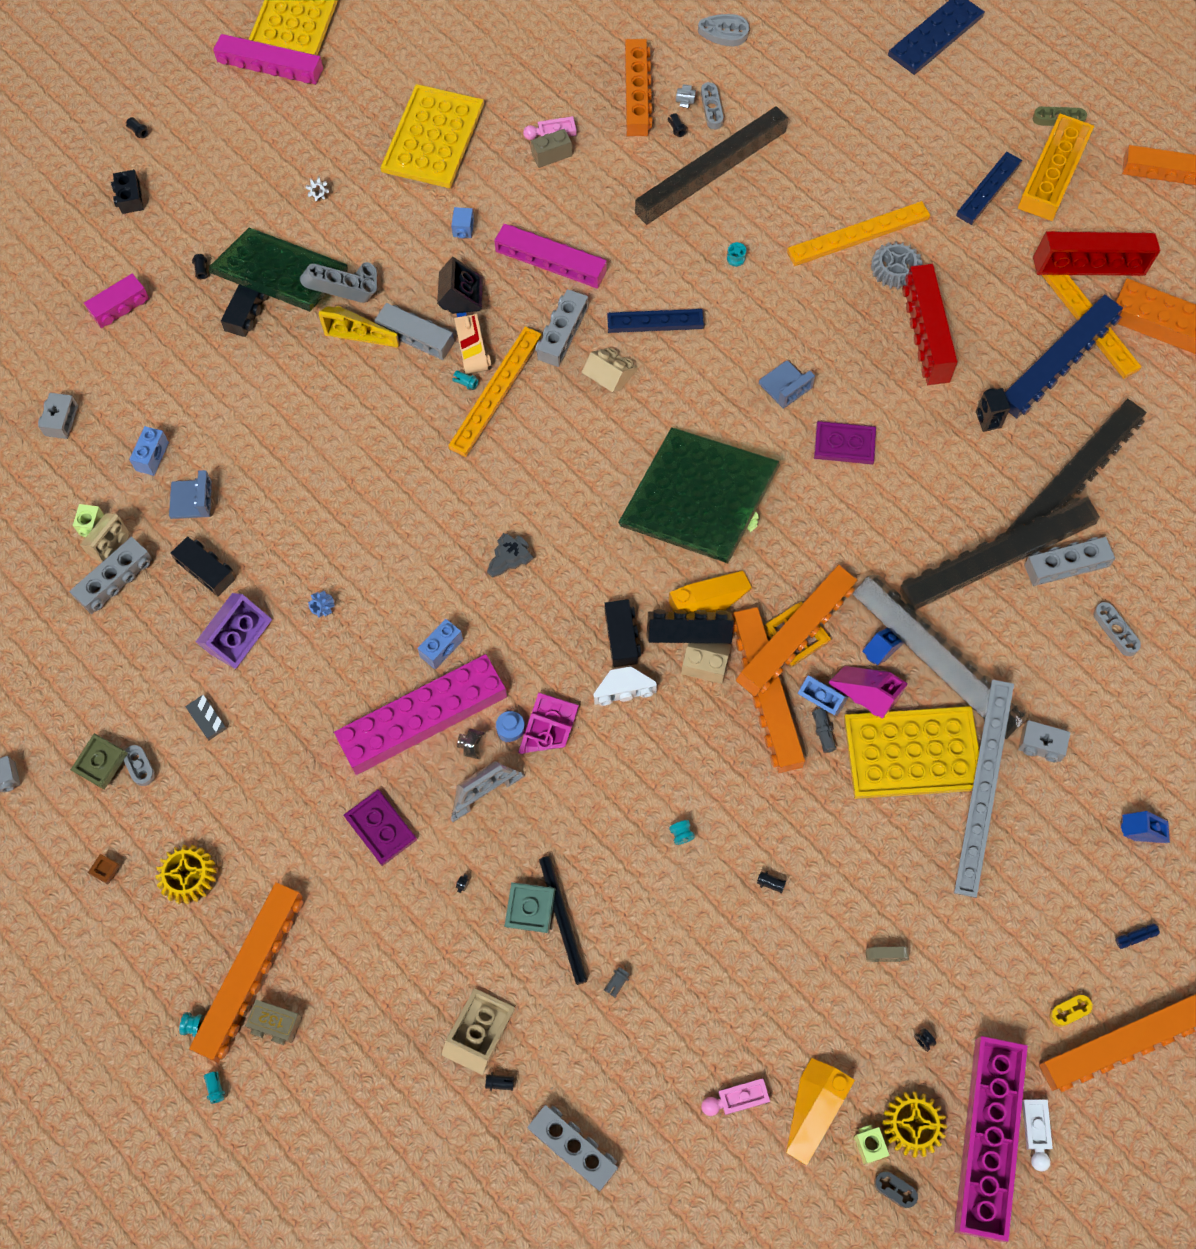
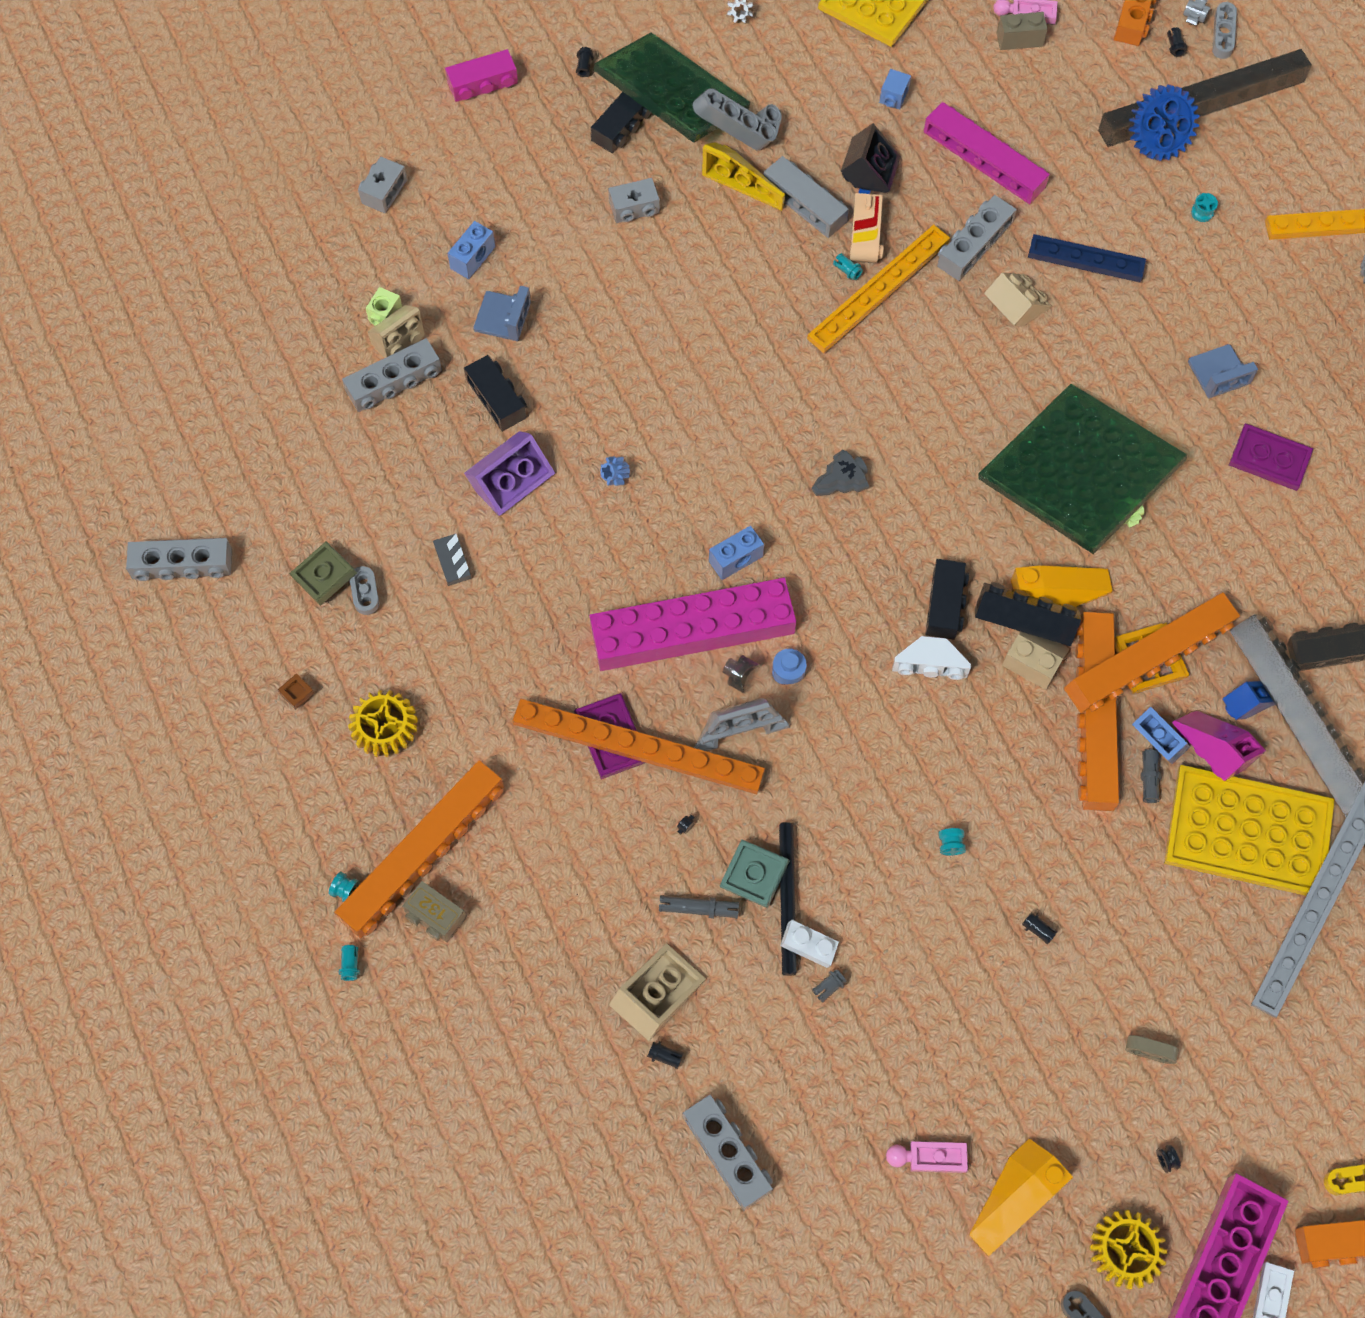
camera: 15 degrees right, 0 degrees up
(274, 372) = (634, 200): none -> light grey brick
(404, 830) = (638, 746): none -> orange plate
(492, 949) = (699, 906): none -> dark grey pin
(548, 724) = (833, 677): dark pink slope -> none
(591, 952) = (809, 943): none -> white plate
(677, 208) = (1149, 136): none -> blue gear
(871, 1155) = (1063, 1267): yellowish green brick -> none

